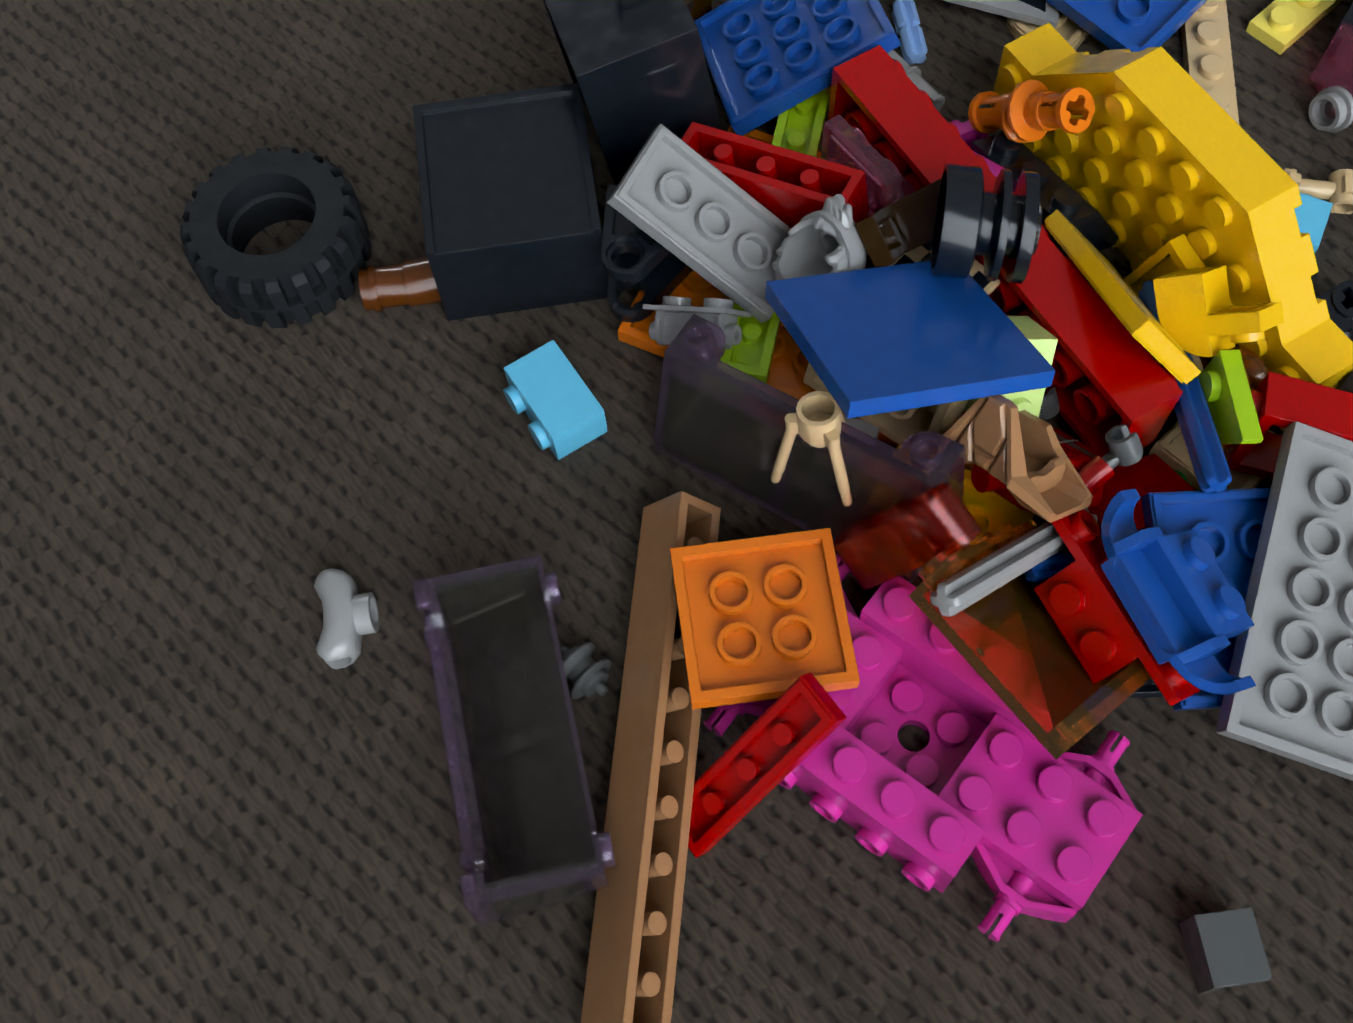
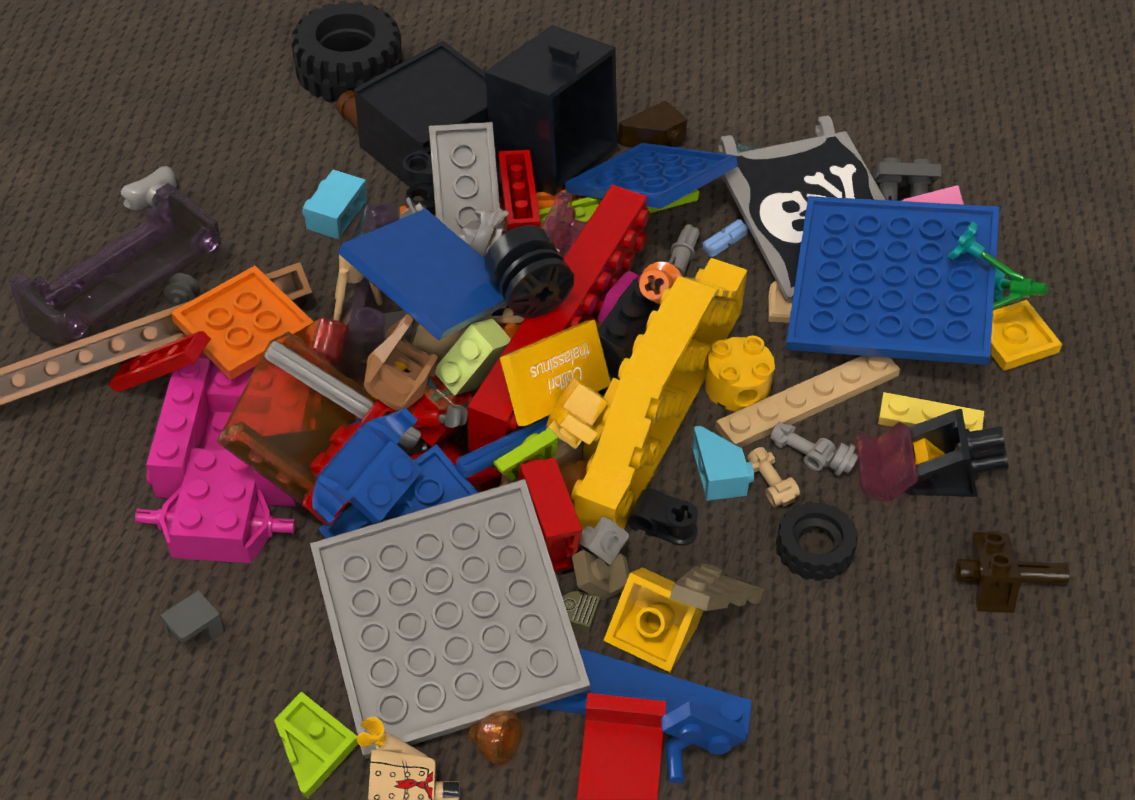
camera: 50 degrees right, 15 degrees down
(1302, 125) = (816, 454): none -> light grey bar

